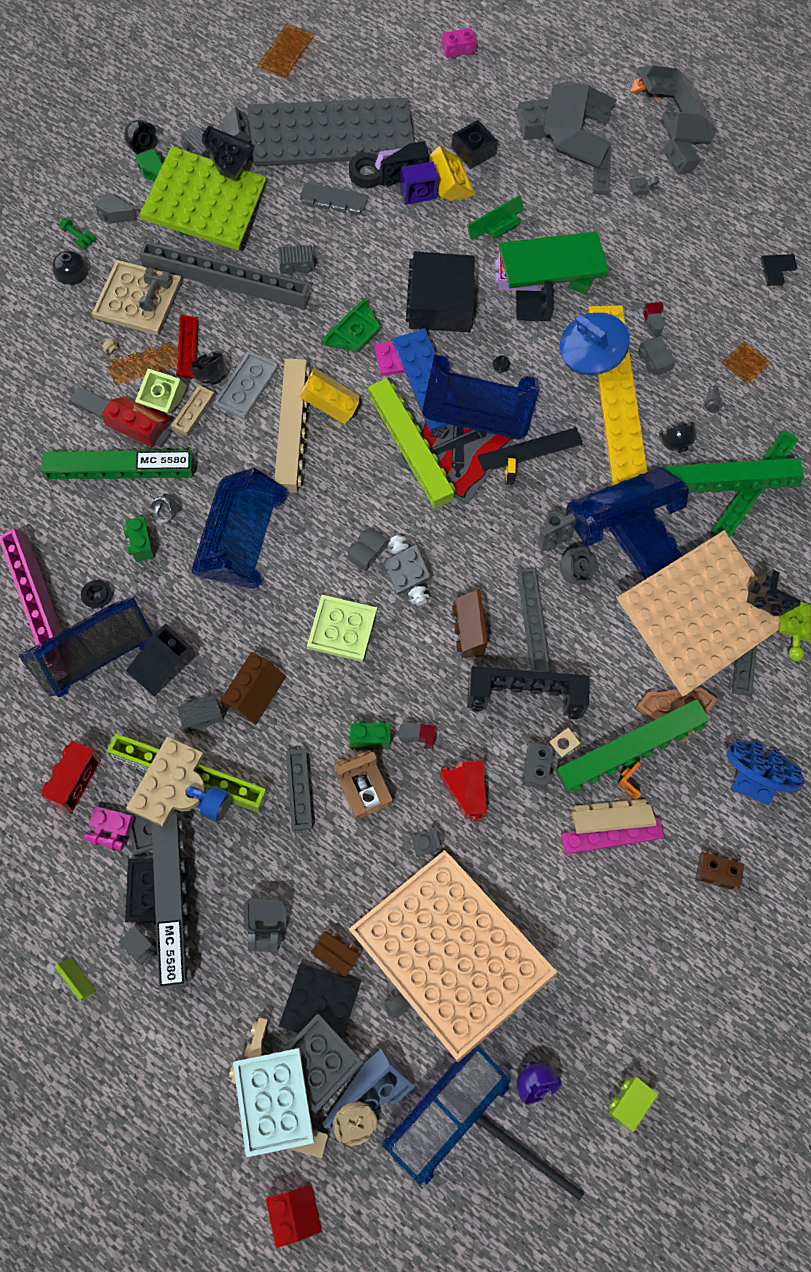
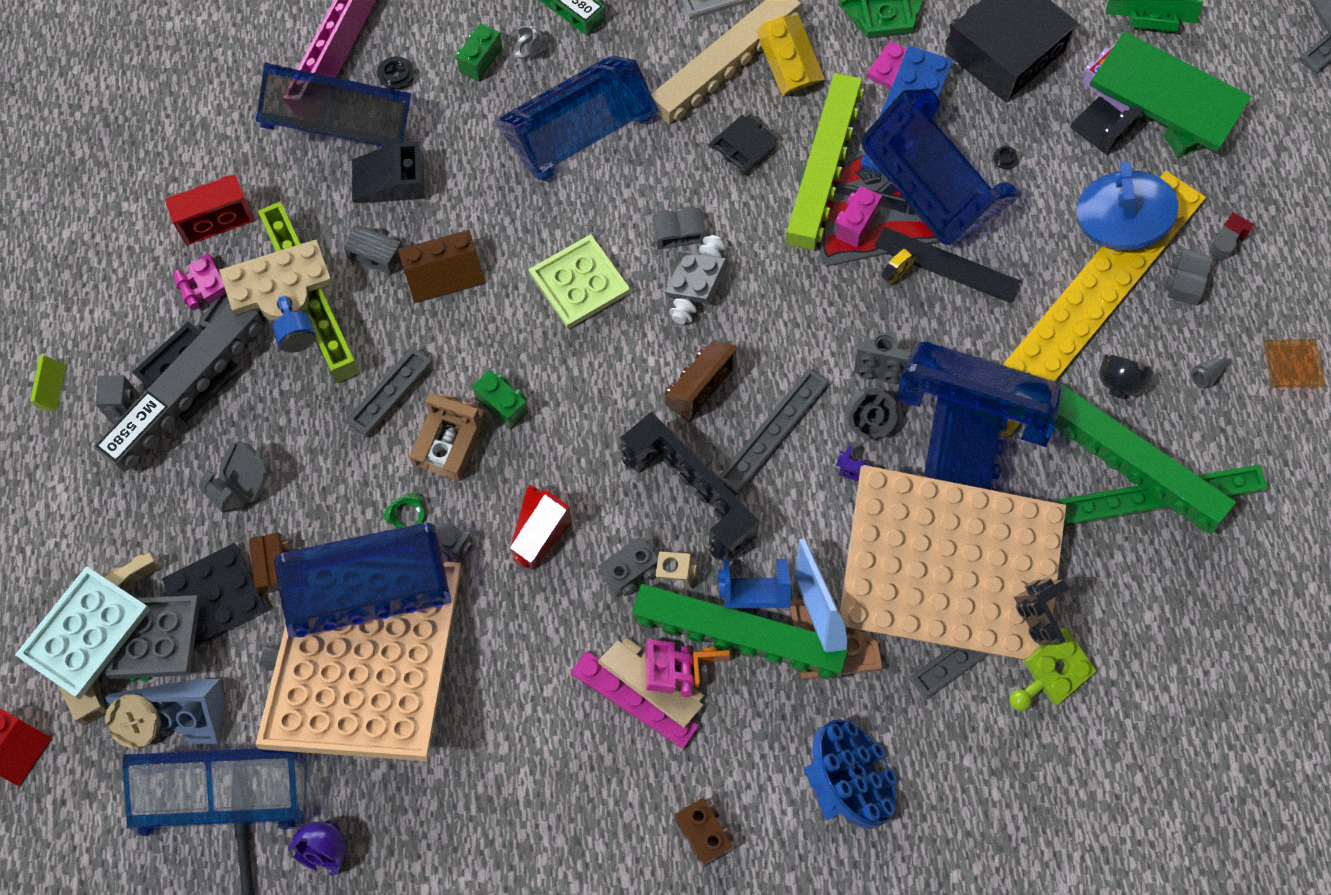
camera: 50 degrees right, 0 degrees up
(353, 468) = (745, 142): none -> black plate
(372, 858) = (411, 499): none -> green piece
(409, 912) = (361, 579): none -> clear blue windscreen
(417, 733) = (549, 437): leg -> none
(461, 459) = (858, 216): none -> dark pink brick
(597, 605) = (849, 468): none -> dark purple bracket
(612, 804) = (661, 668): none -> dark pink plate
(620, 715) = (755, 591): none -> blue panel
(660, 690) = (819, 601): none -> light blue slope

